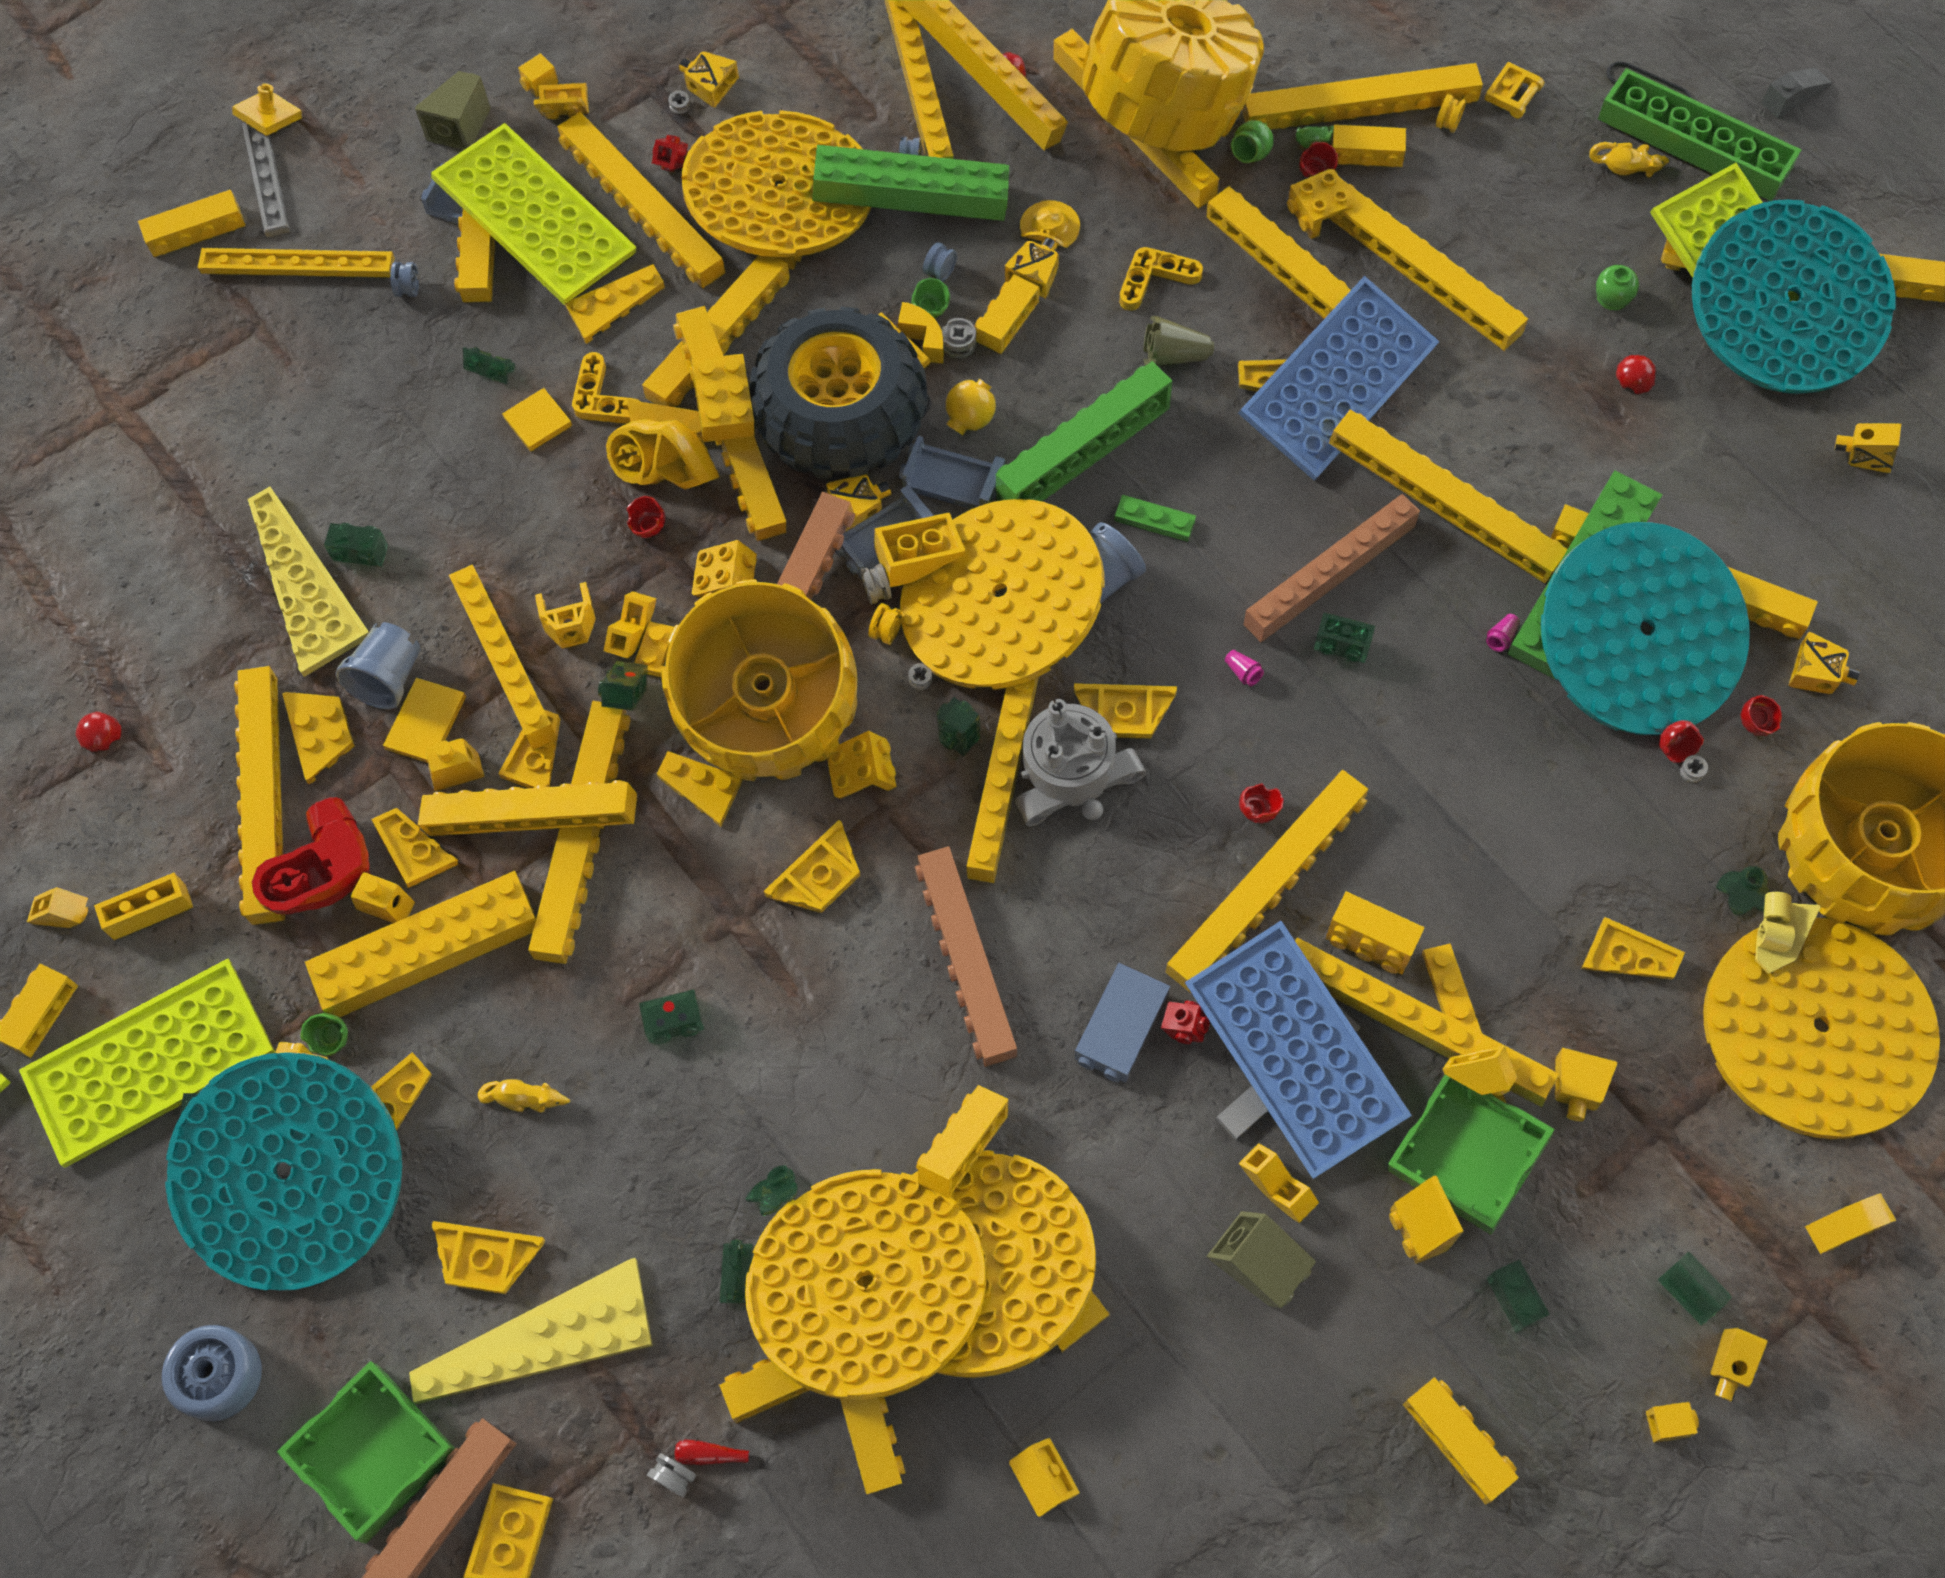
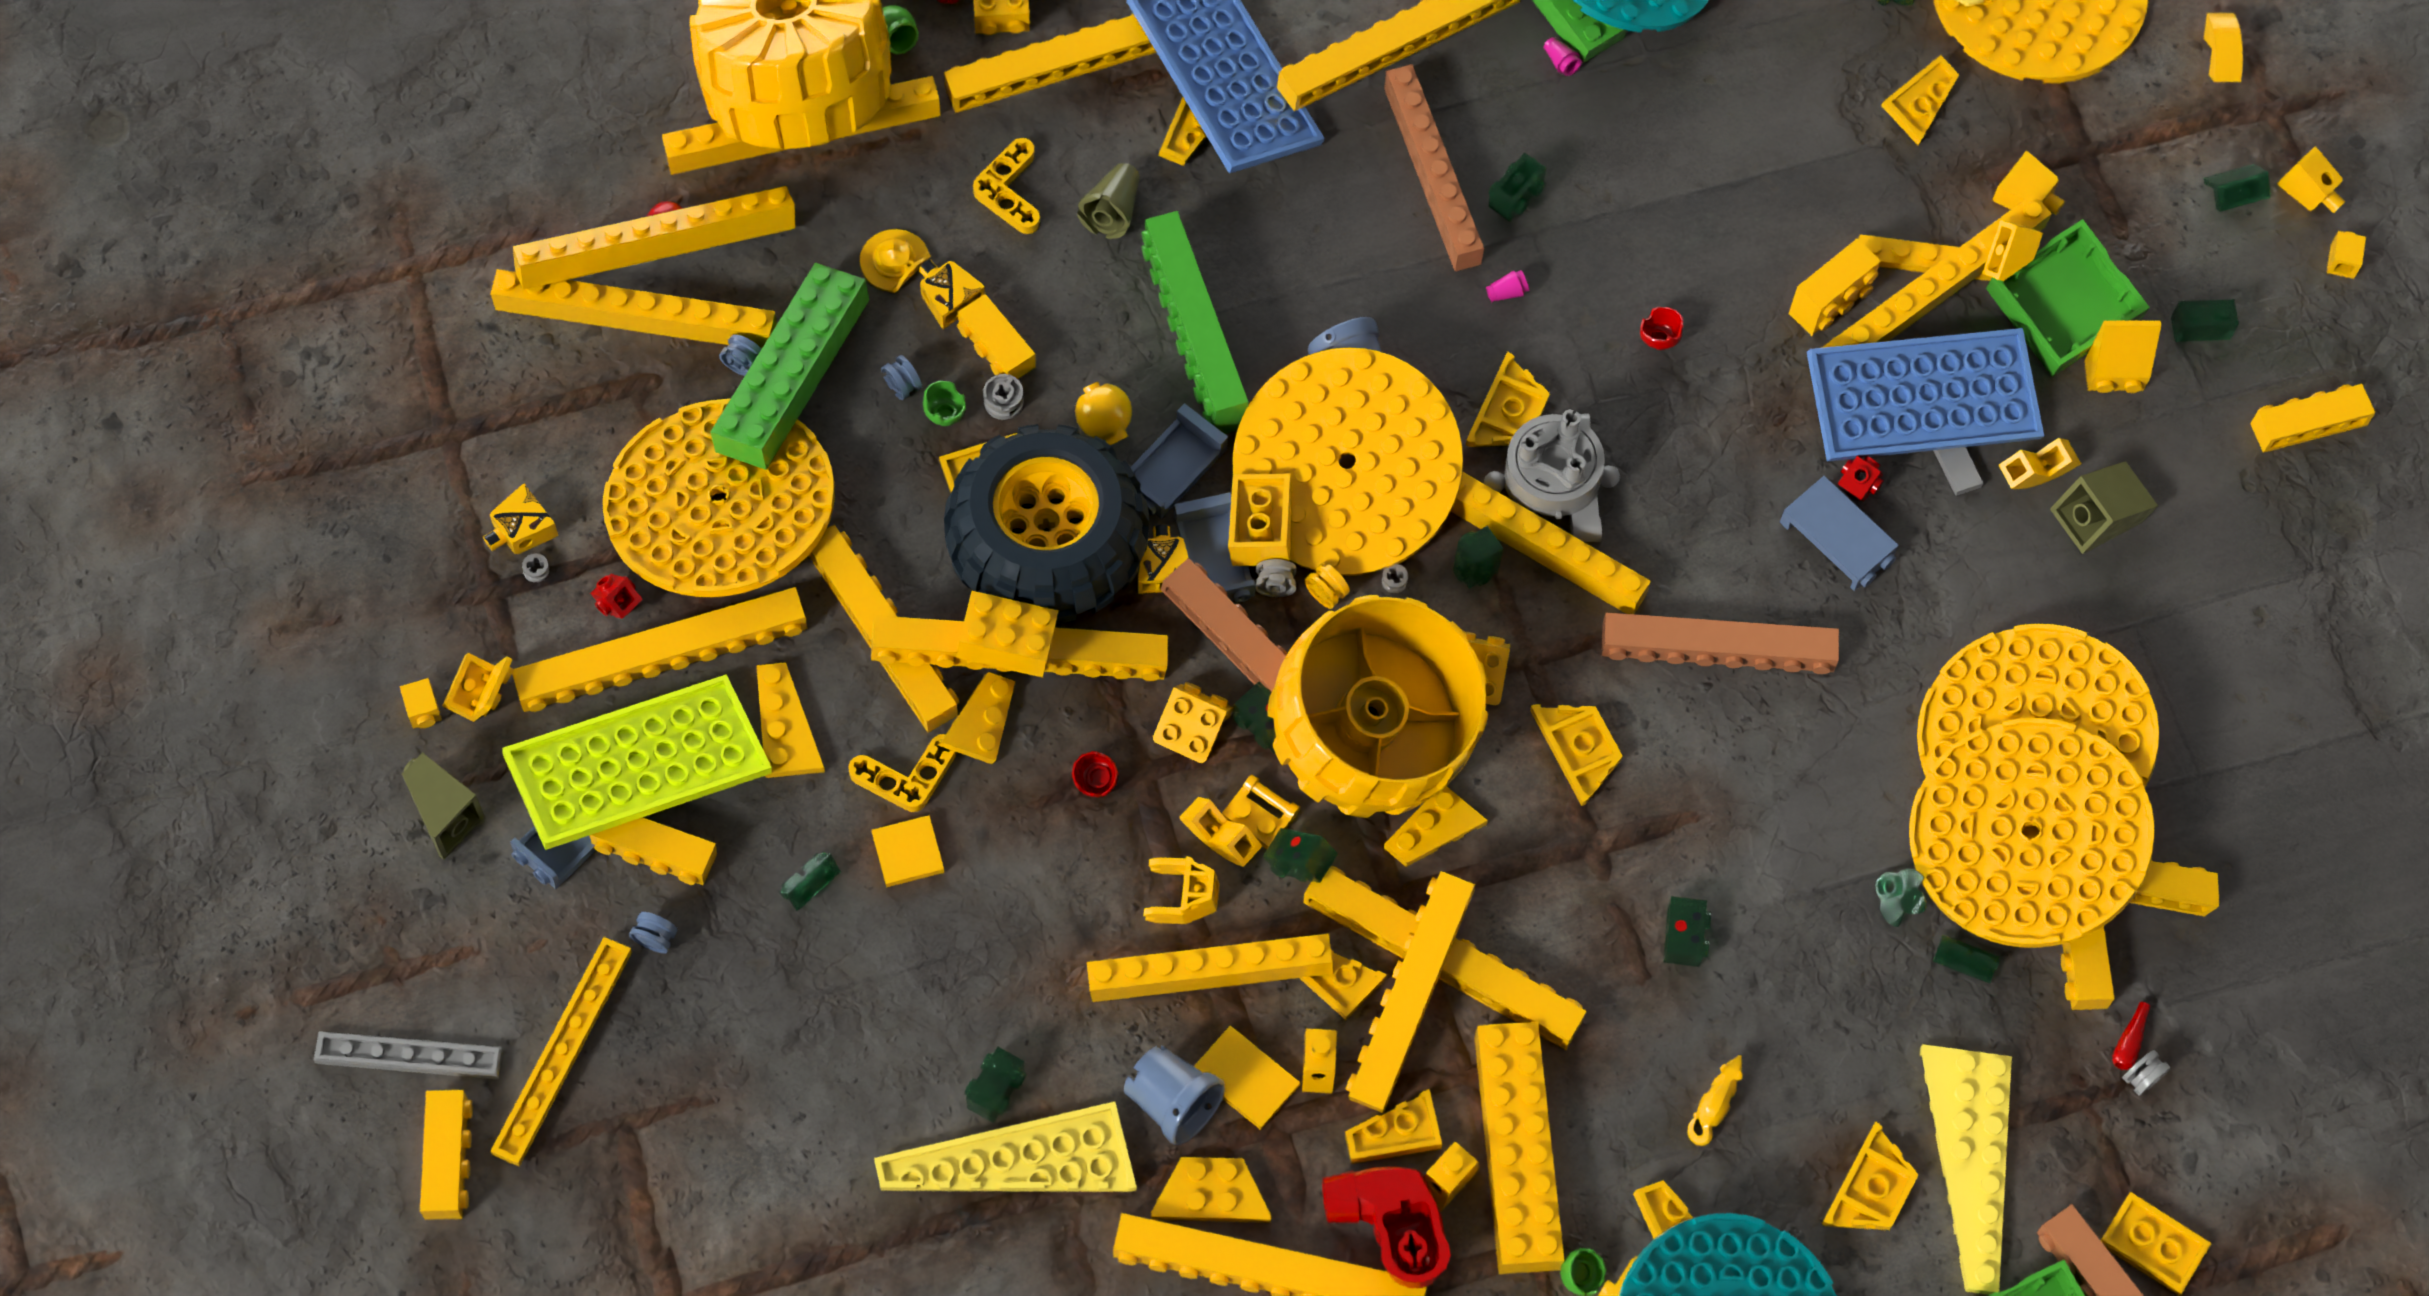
camera: 75 degrees left, 0 degrees up
(266, 111) = (315, 1024): yellow tile -> none
(657, 451) = (1027, 731): yellow piece -> none
(919, 324) = (969, 425): yellow brick -> none
(962, 1141) = (1917, 705): yellow brick -> none
(1043, 1476) = (2242, 760): yellow panel -> none
(1155, 518) = (1302, 300): bright green plate -> none
(1270, 878) = (1742, 356): yellow brick -> none

